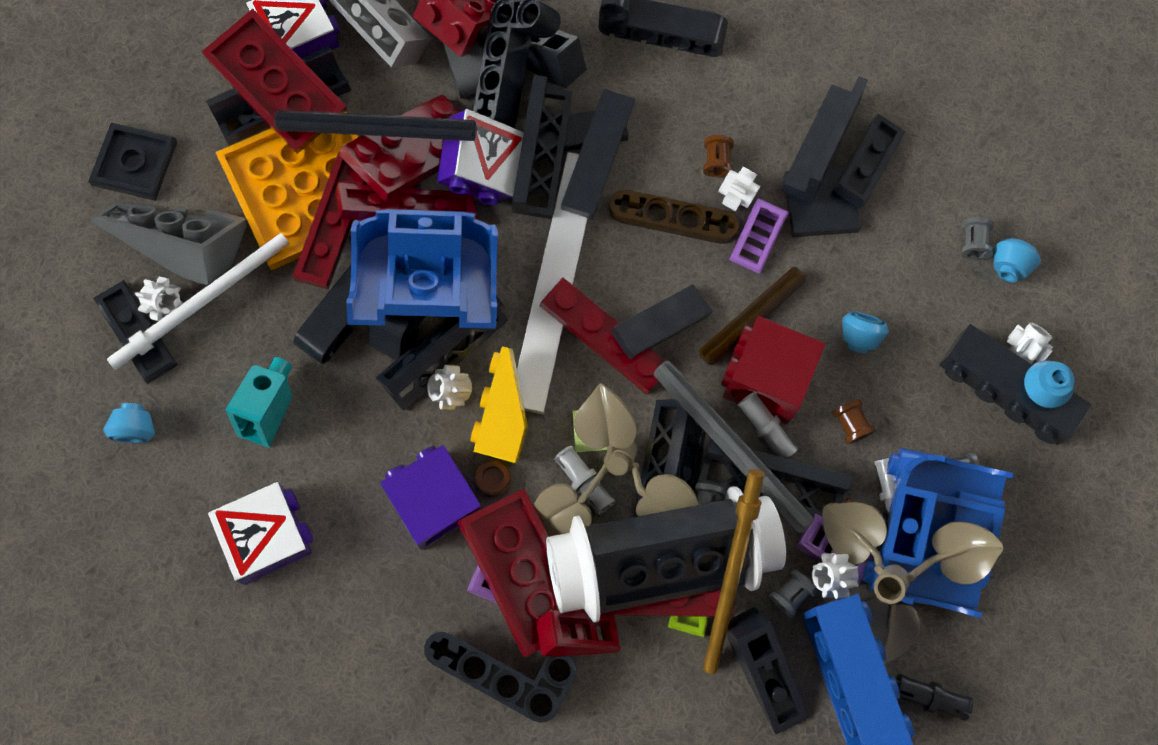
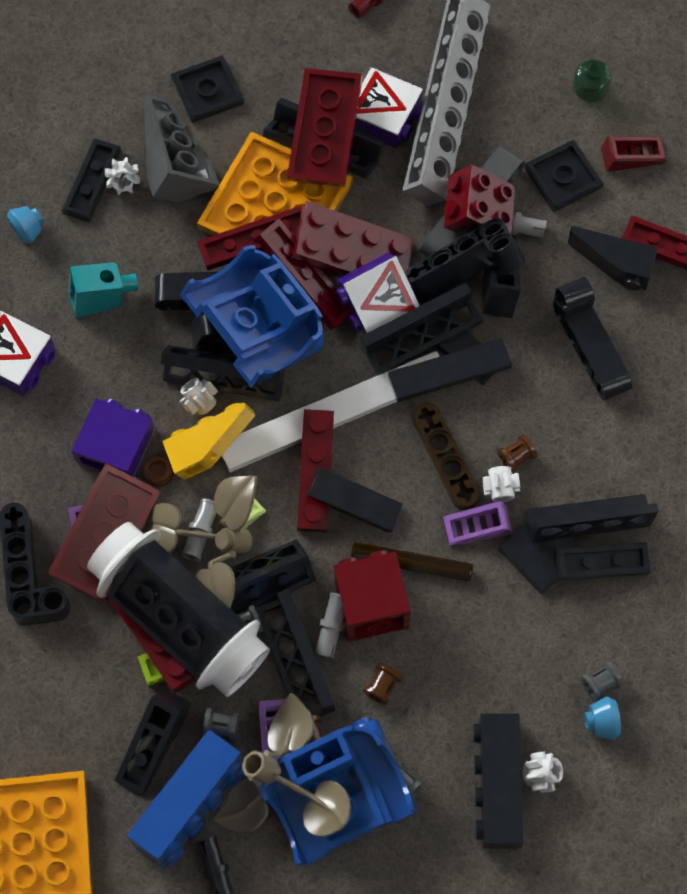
camera: 60 degrees right, 5 degrees down
(142, 341) = (85, 188): white bar -> none
(376, 125) = (339, 211): black axle -> none
(555, 637) = (71, 593): dark red slope -> none
(732, 445) = (291, 606): dark grey axle -> none
(747, 511) = (233, 629): pearl gold bar -> none
(835, 575) = (250, 737): white gear -> none
(863, 331) = (458, 644): dark azure cone -> none
(1049, 383) = (502, 794): dark azure cone -> none

